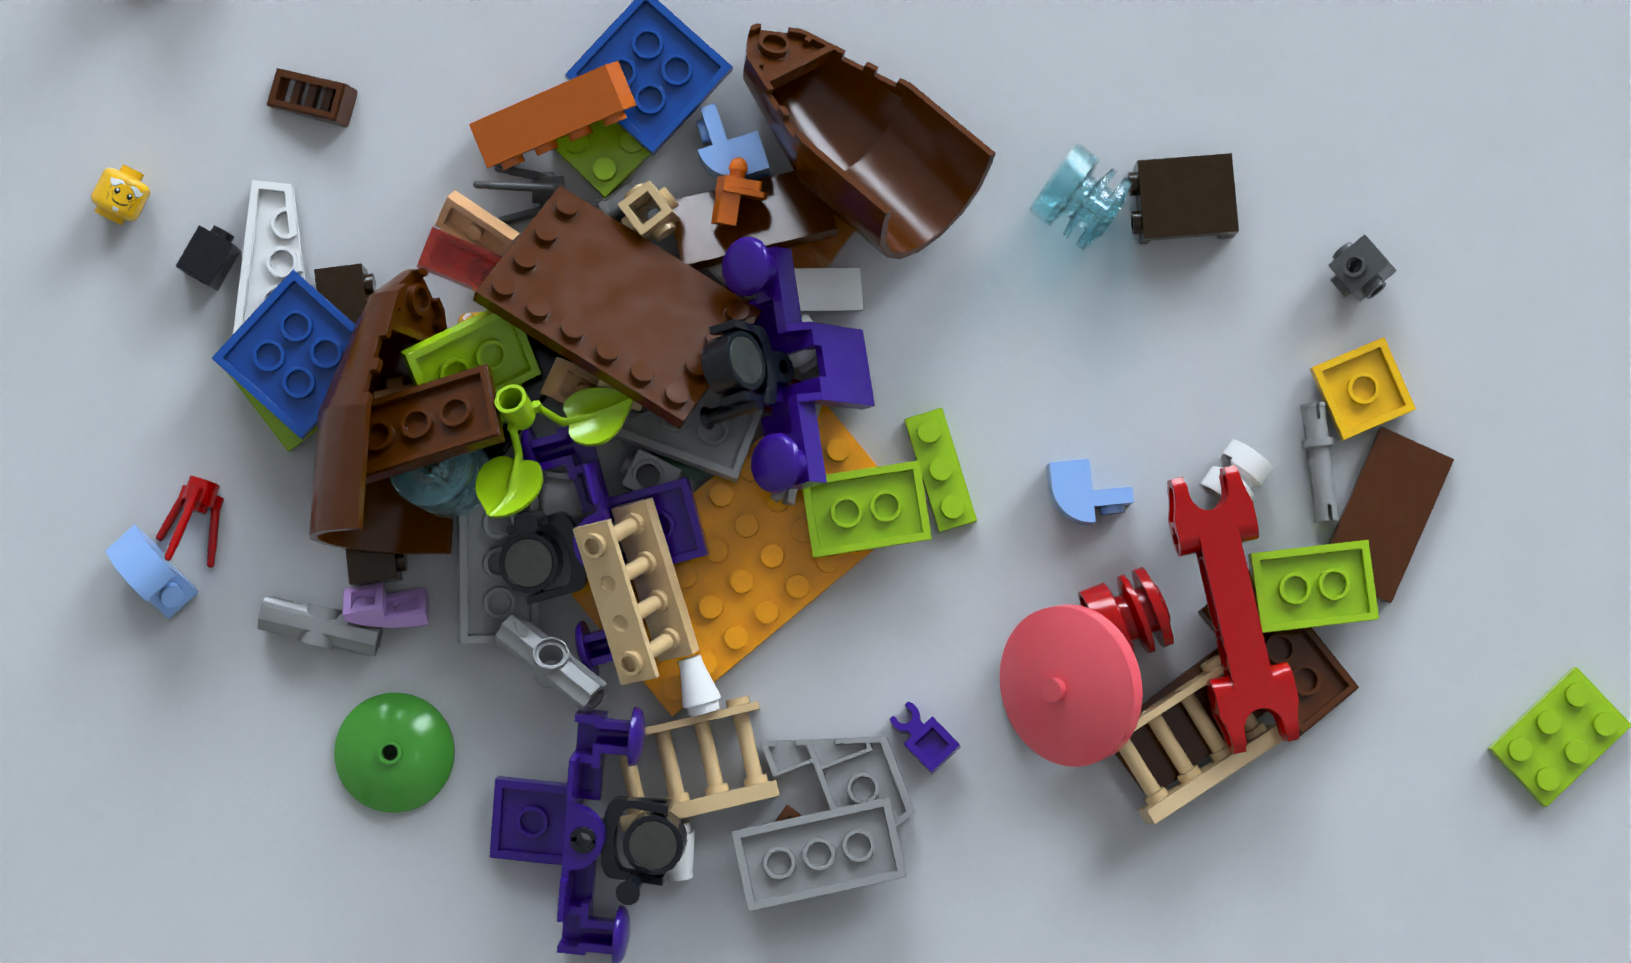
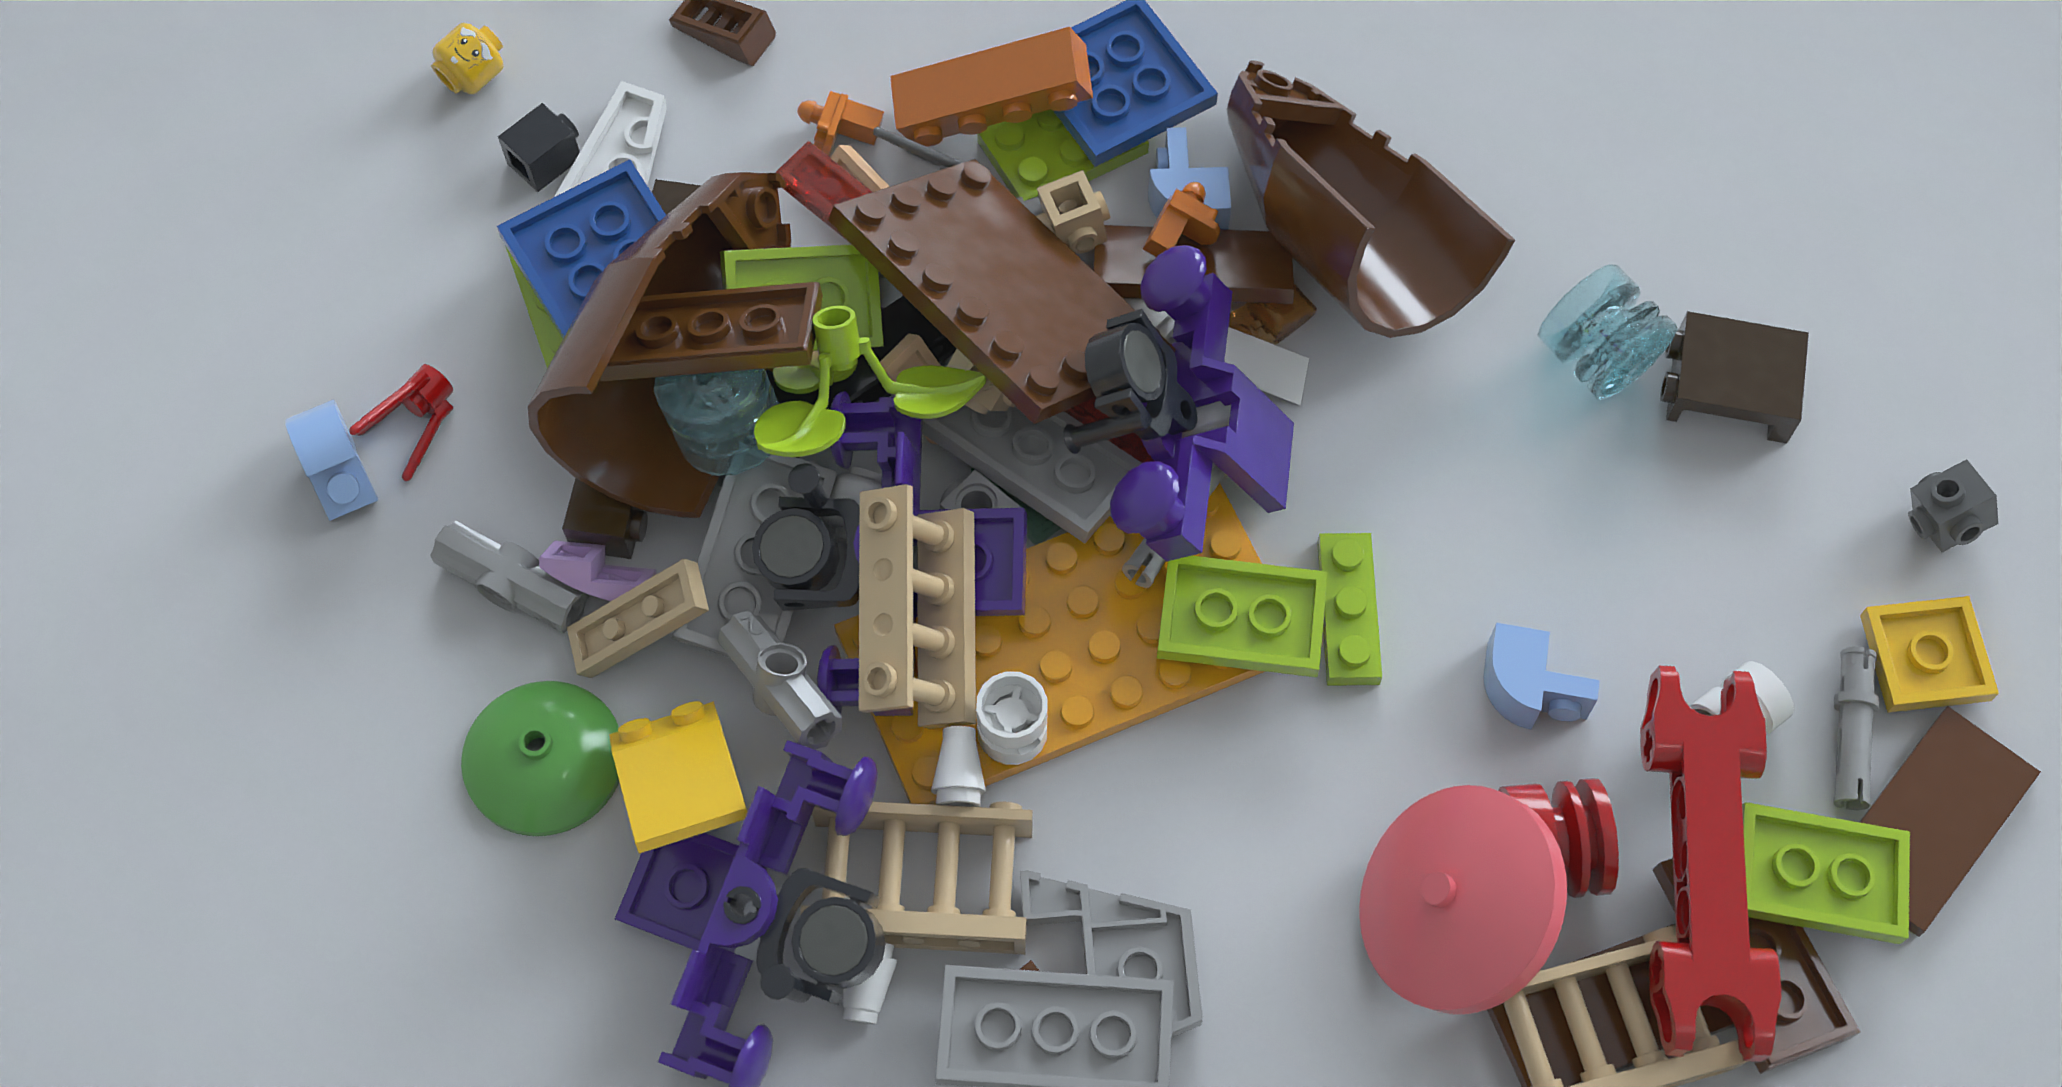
camera: 20 degrees right, 20 degrees down
(430, 639) = (637, 618): none -> tan plate
(435, 161) = (842, 118): none -> orange piece
(503, 755) = (676, 775): none -> yellow slope
(724, 641) = (1011, 705): none -> white wheel
(928, 742) = (1243, 935): dark purple plate -> none

